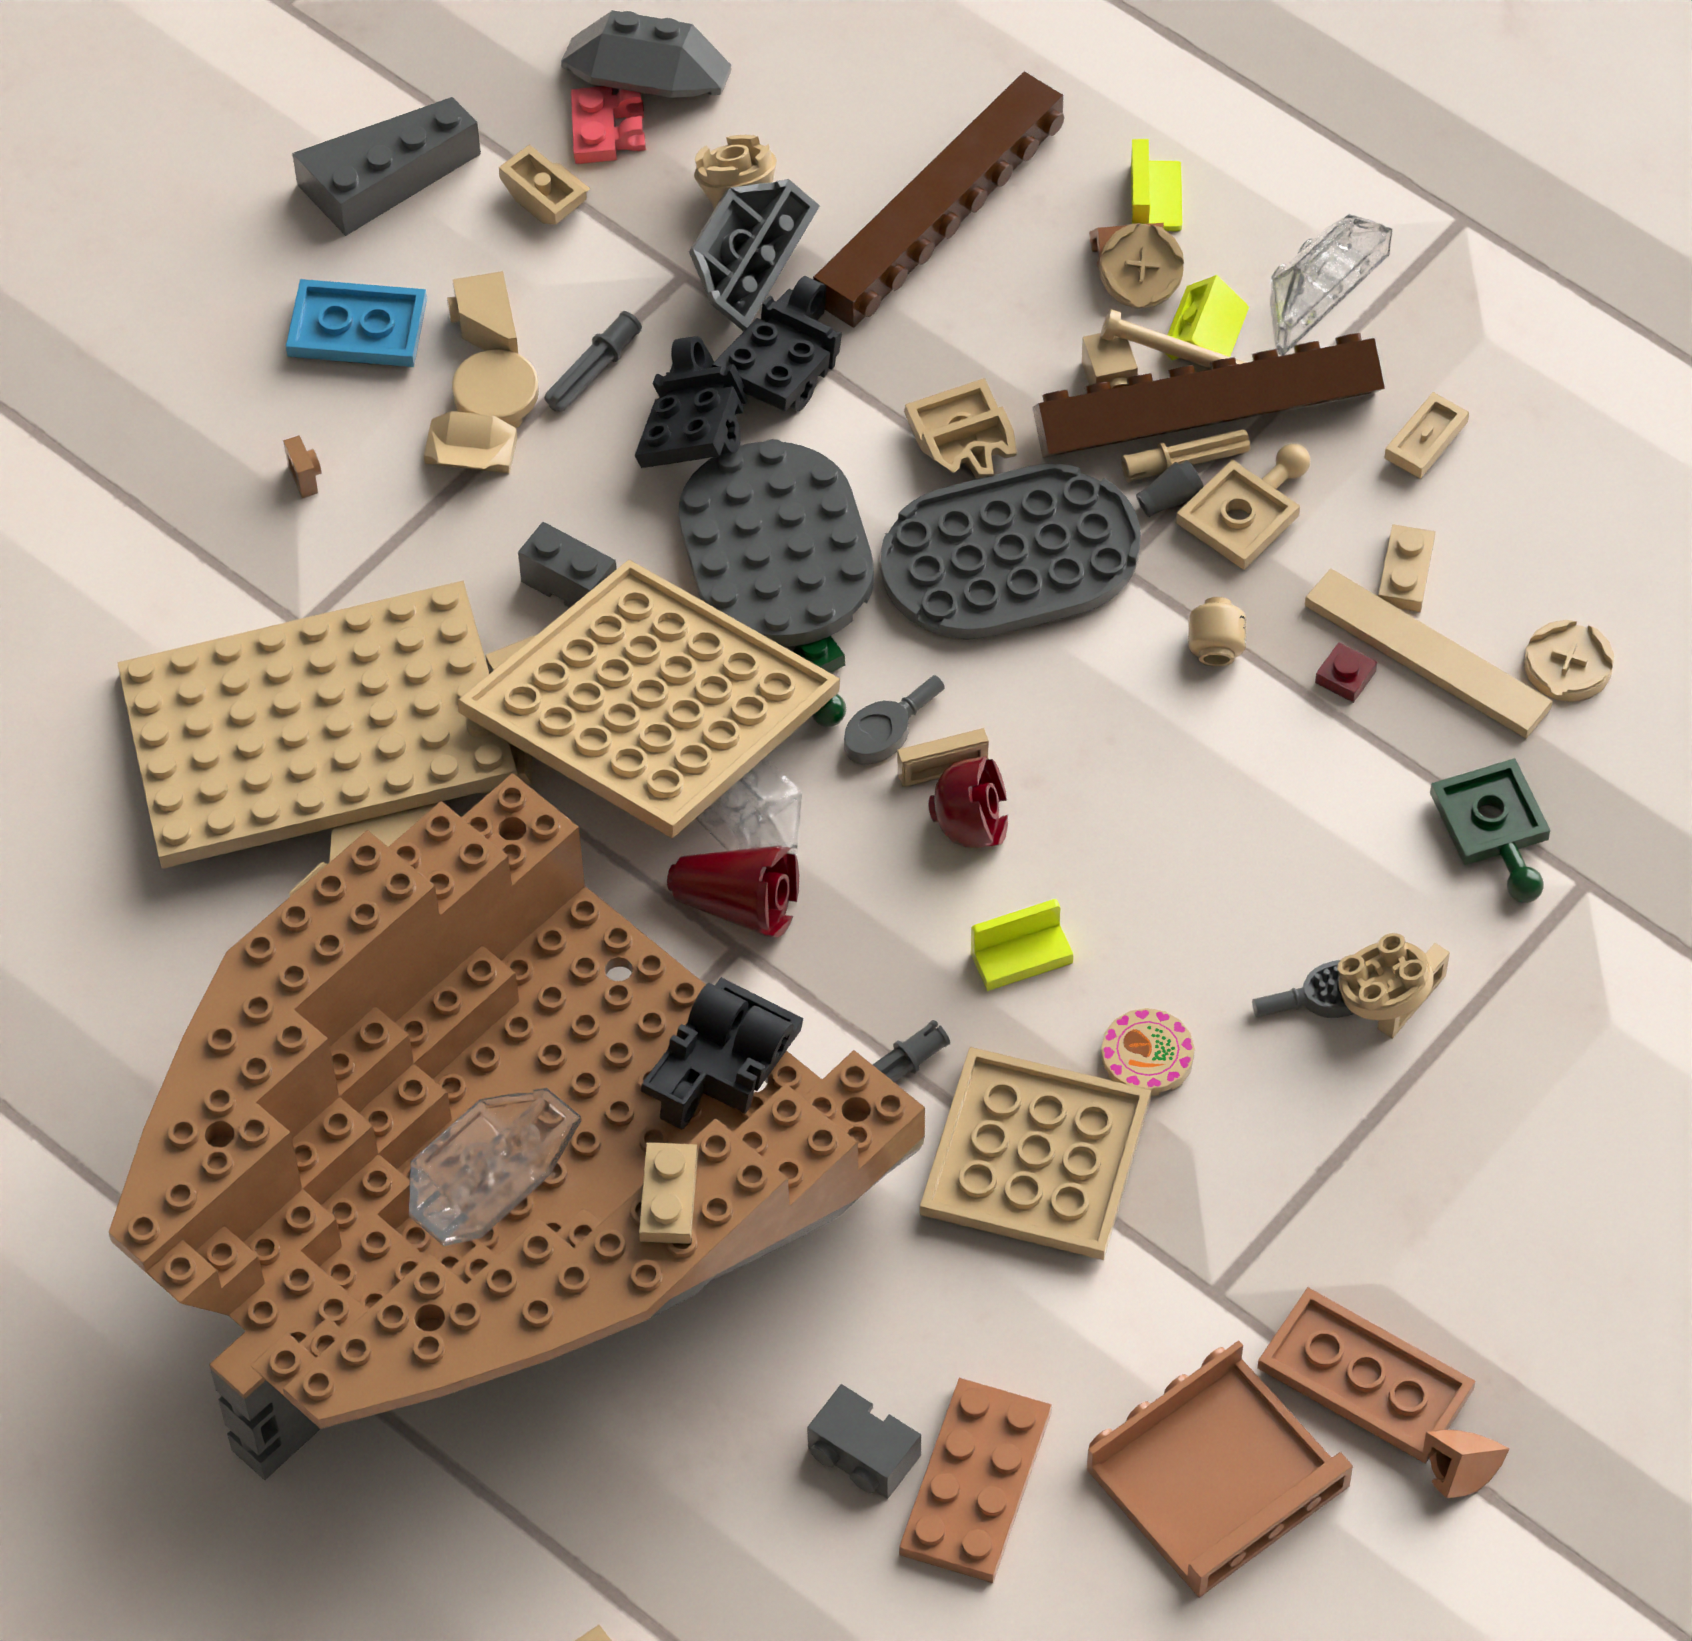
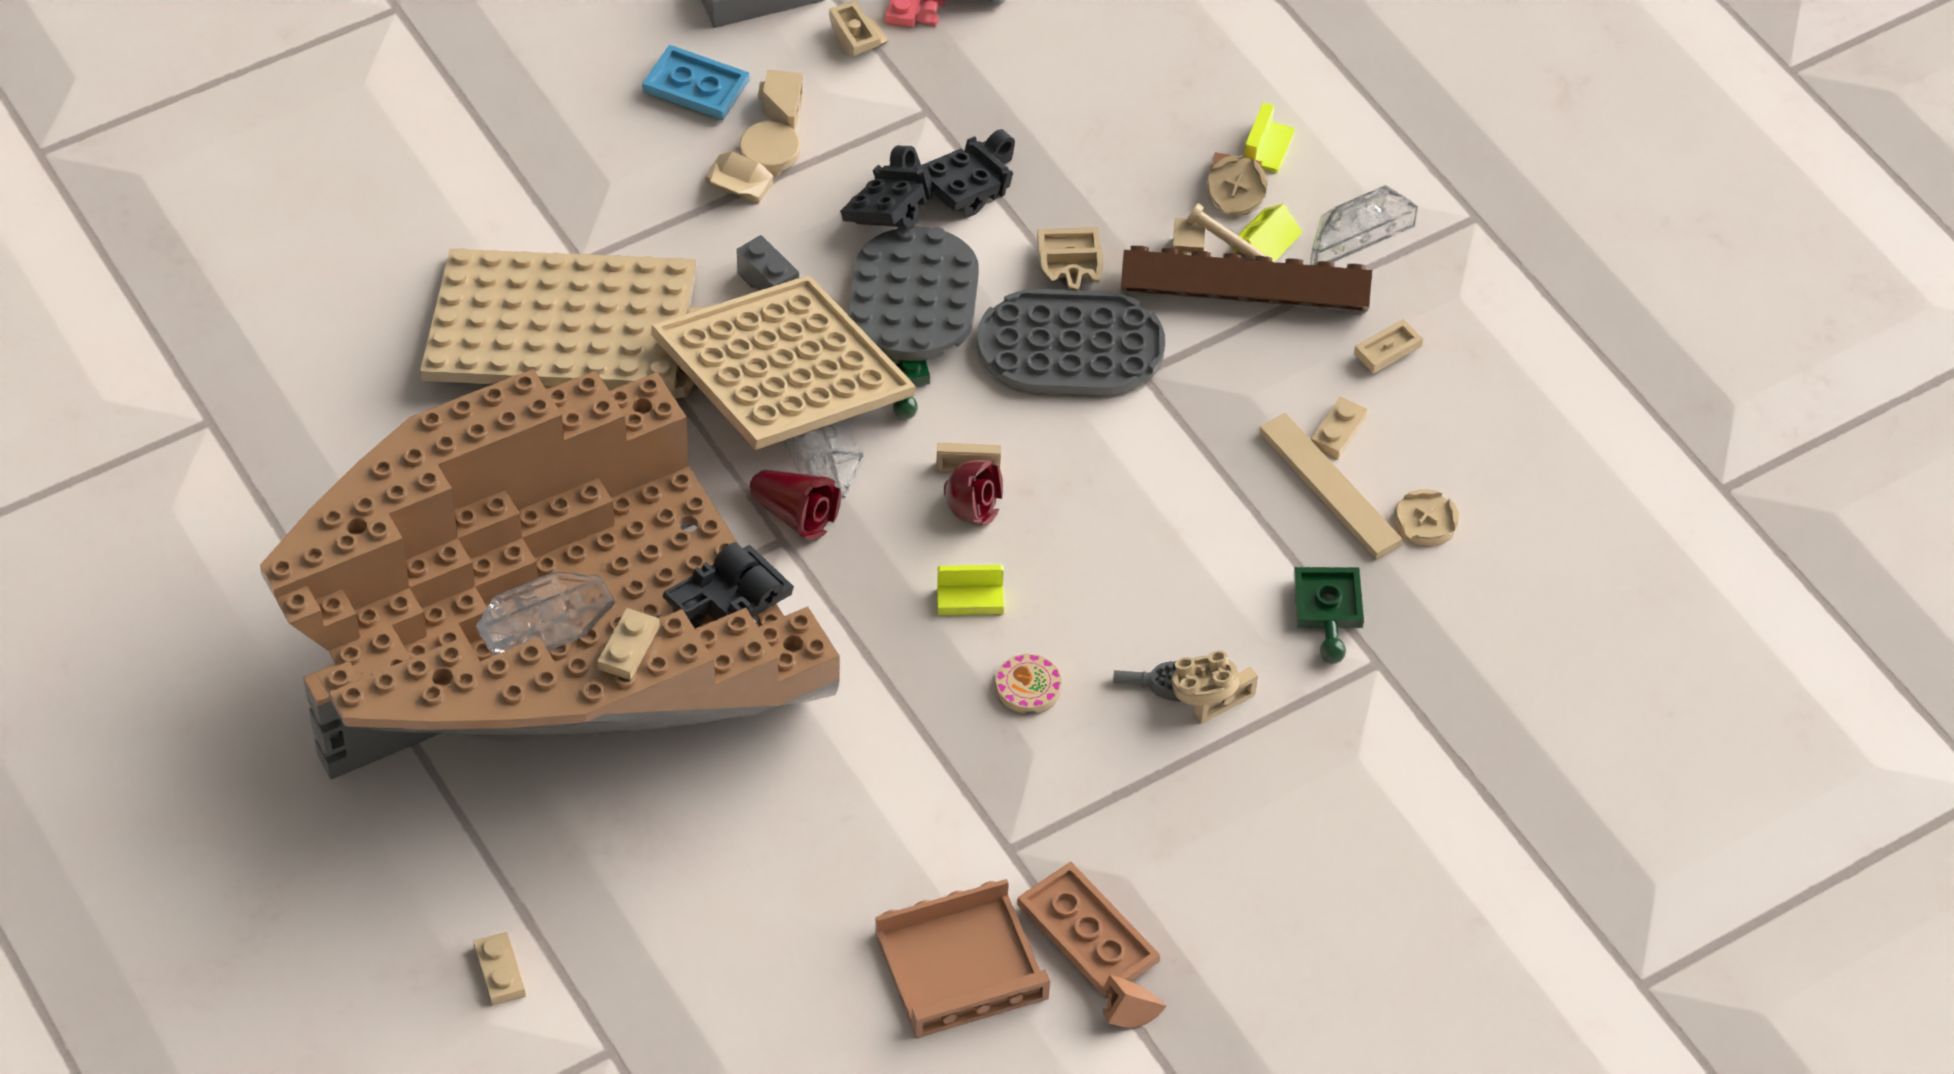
camera: 15 degrees right, 5 degrees down
(302, 466) = (622, 160): medium nougat plate -> none
(604, 349) = (849, 144): dark grey axle -> none
(733, 165) = (985, 55): tan cone -> none
(749, 245) = (972, 99): dark grey wedge -> none
(865, 1447) = (732, 876): dark grey brick -> none
(884, 725) = (940, 427): dark grey piece -> none
(913, 1051) = (865, 638): dark grey axle -> none
(940, 198) = (1118, 107): reddish brown brick -> none
(975, 1480) = (796, 918): nougat plate -> none
(1035, 1153) = (924, 724): tan plate -> none
(1172, 488) = (1197, 332): dark grey cone -> none
(1203, 450) = (1216, 313): tan axle -> none
(1217, 632) = (1188, 430): tan head -> none
(1238, 489) = (1244, 346): tan plate -> none
(1346, 672) = (1268, 482): dark red plate -> none

